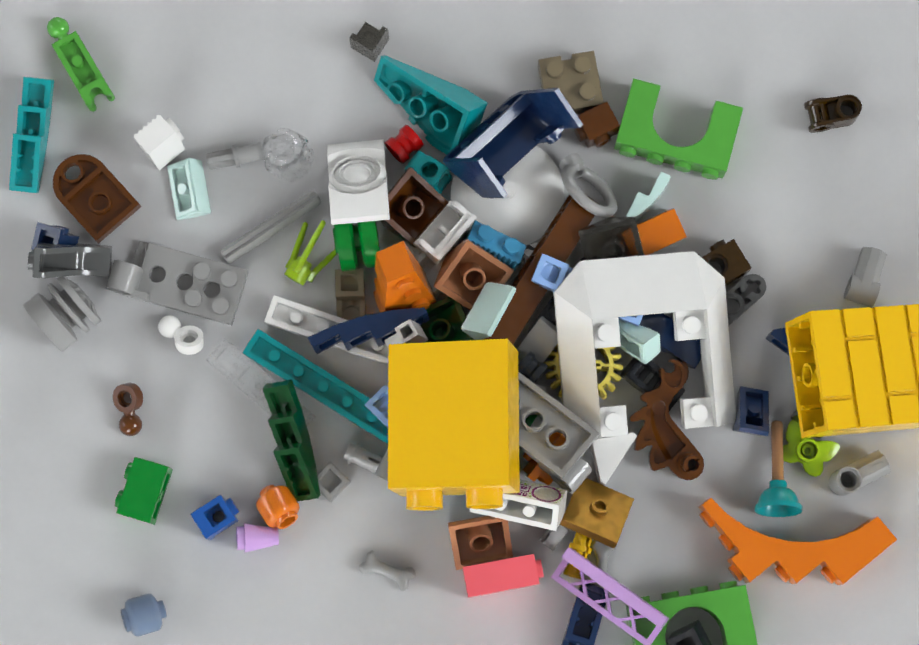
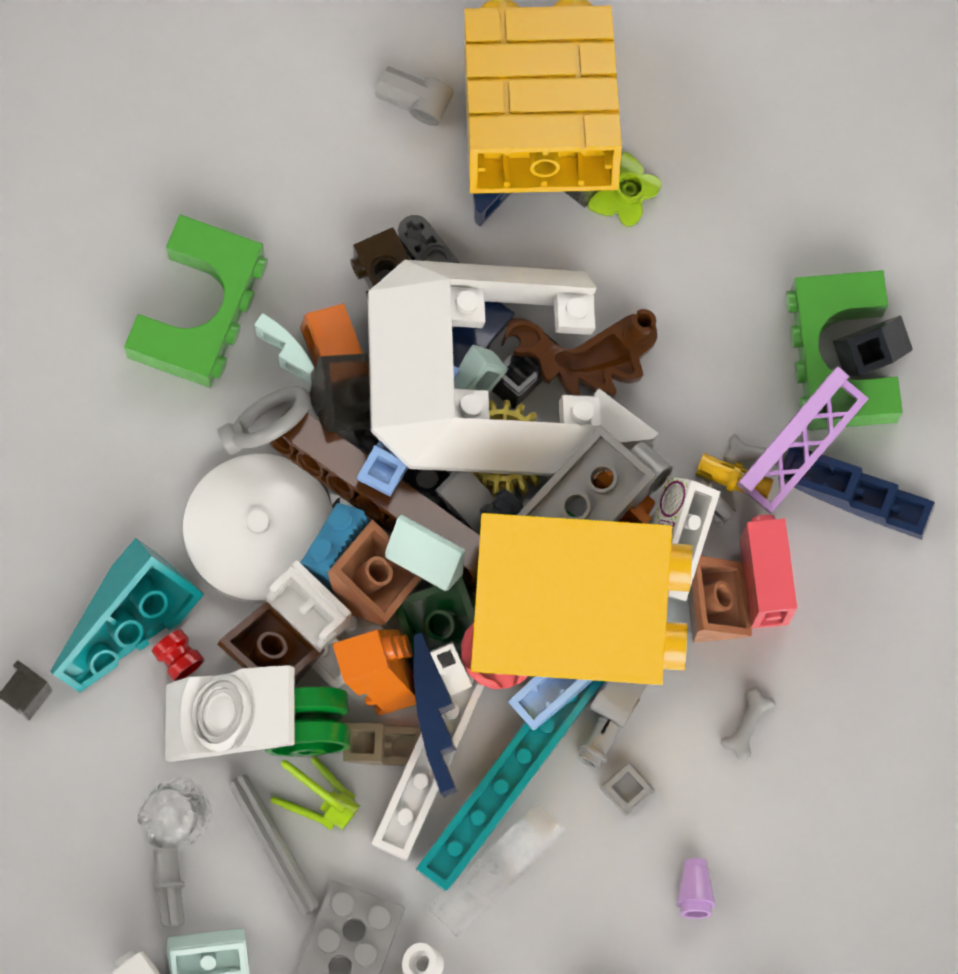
camera: 90 degrees left, 5 degrees down
(205, 516) = (681, 944): blue brick -> none
(277, 506) = (657, 857): orange head -> none
(293, 440) = (572, 829): dark green slope -> none
(430, 170) = (215, 625): teal leg -> none
(508, 136) = (185, 518): dark blue windscreen -> none
(575, 78) = (119, 432): dark tan piece -> none
(597, 126) = (180, 402): reddish brown brick -> none
(597, 512) = (695, 444): pearl gold plate -> none
(752, 411) = (578, 247): dark blue slope -> none
(755, 552) = (754, 265): orange arch -> none
(778, 499) = (688, 228): teal piece -> none
(827, 115) = (194, 114): dark brown piece -> none
(860, 473) = (662, 131): light grey piece -> none

